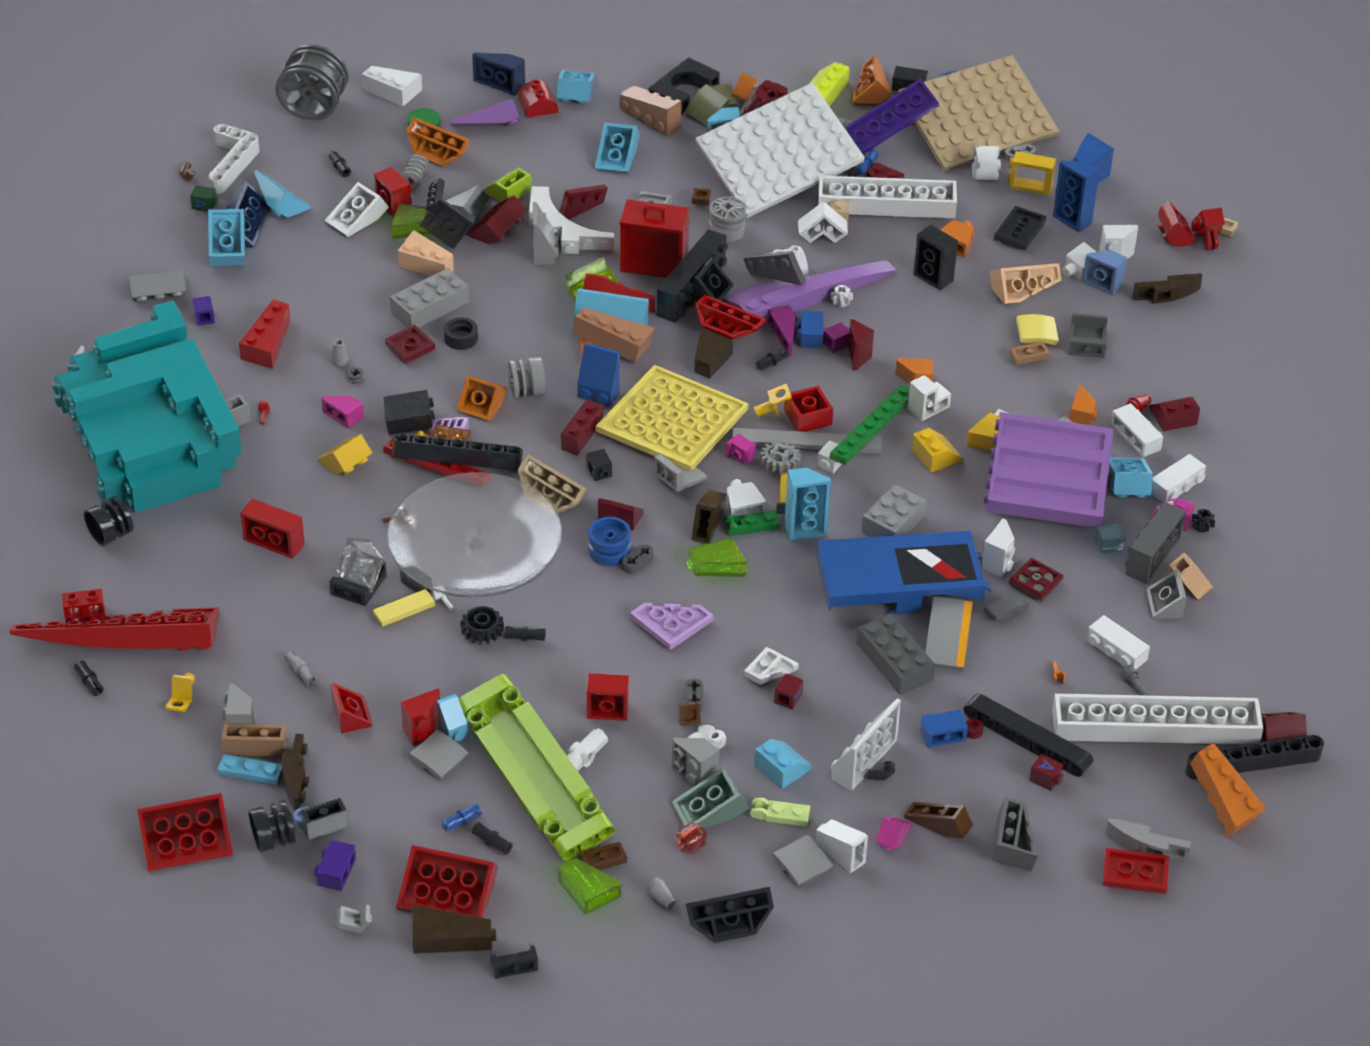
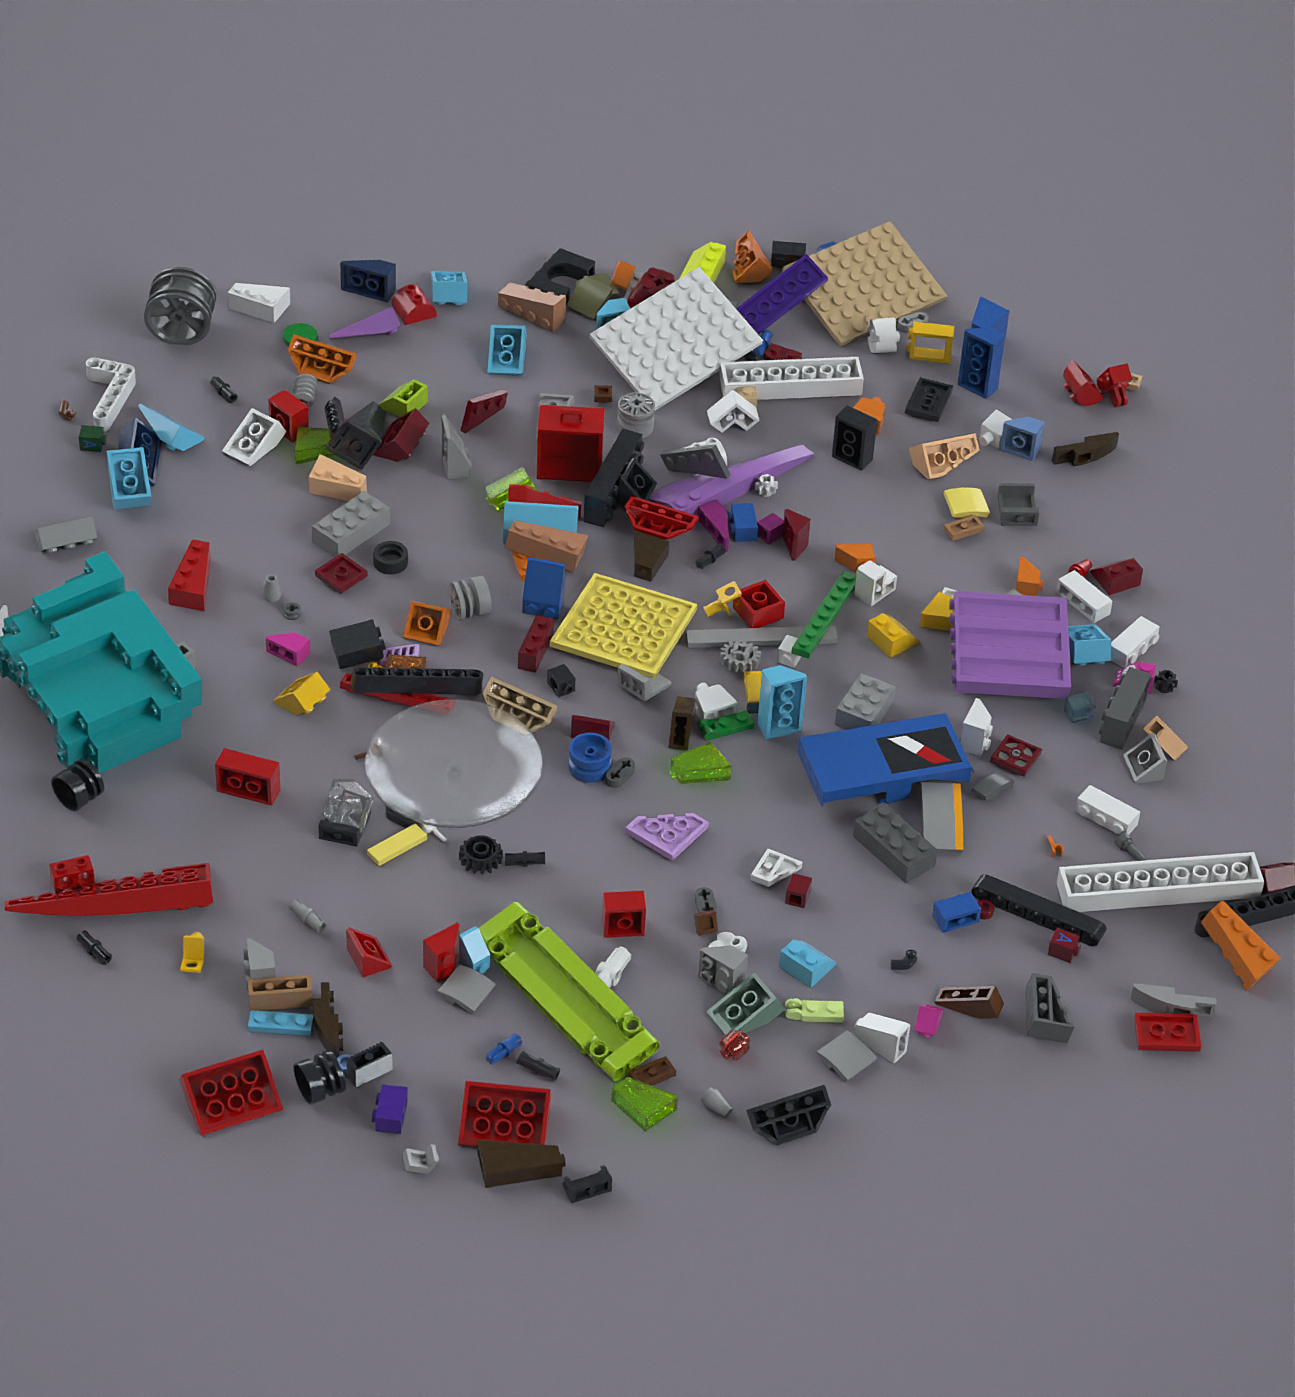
camera: 10 degrees left, 0 degrees up
(203, 310) = (121, 556): dark purple brick -> none
(263, 406) = (206, 652): red hand -> none
(572, 236) = (482, 446): white arch -> none
(740, 449) = (699, 651): dark pink brick -> none
(867, 748) = (887, 938): white slope -> none
(1119, 239) = (1030, 403): white slope -> none

